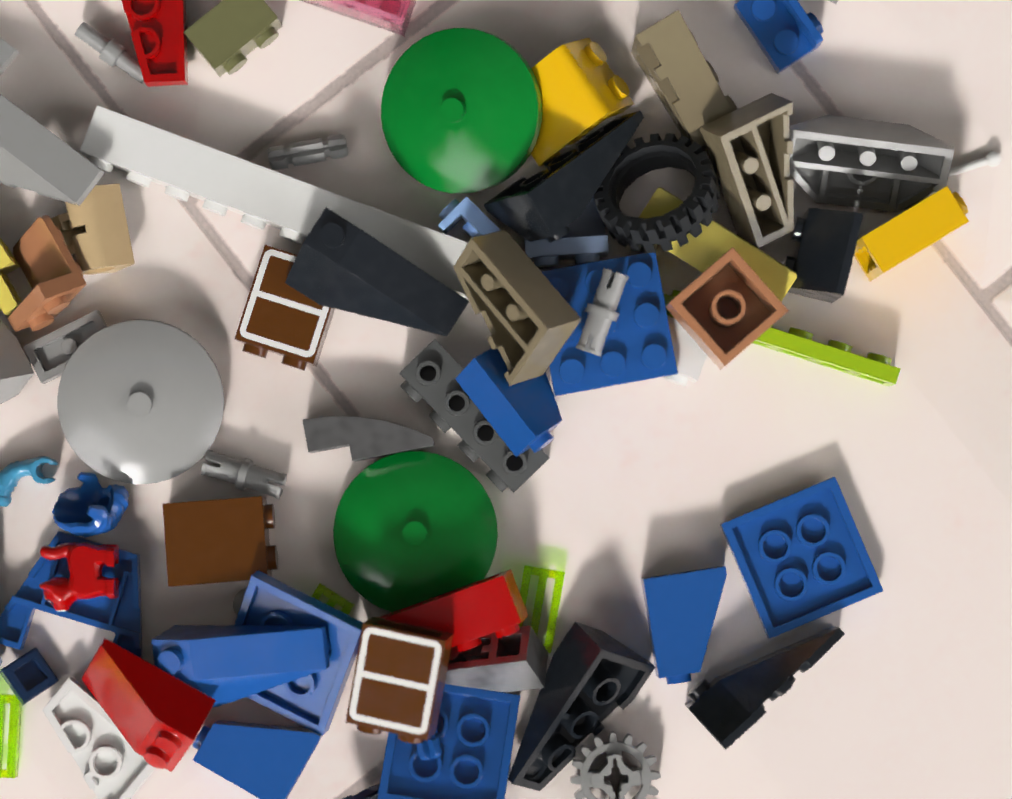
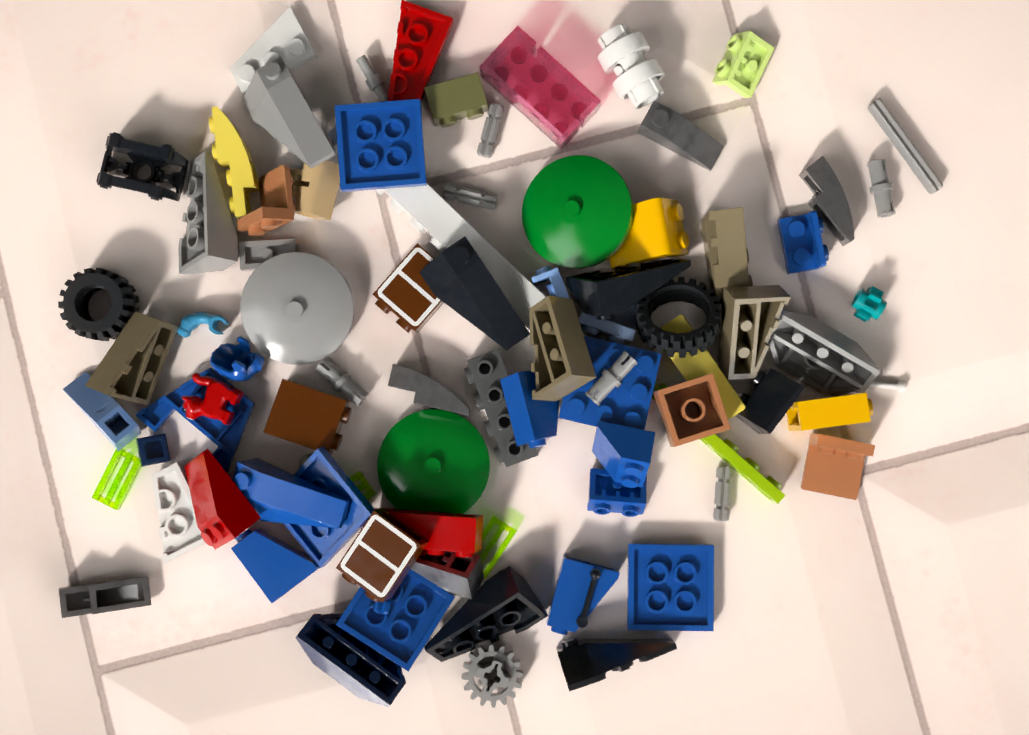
camera: 25 degrees right, 0 degrees up
(159, 134) = (380, 145): none -> blue plate
(297, 51) = (490, 130): none -> light grey axle
(661, 404) = (624, 452): none -> blue slope
(676, 462) = (613, 497): none -> blue bracket
(702, 651) = (582, 621): none -> black hinge
(817, 403) = (723, 493): none -> light grey axle
(902, 66) = (868, 303): none -> teal gear
(950, 301) = (834, 465): none -> nougat bracket

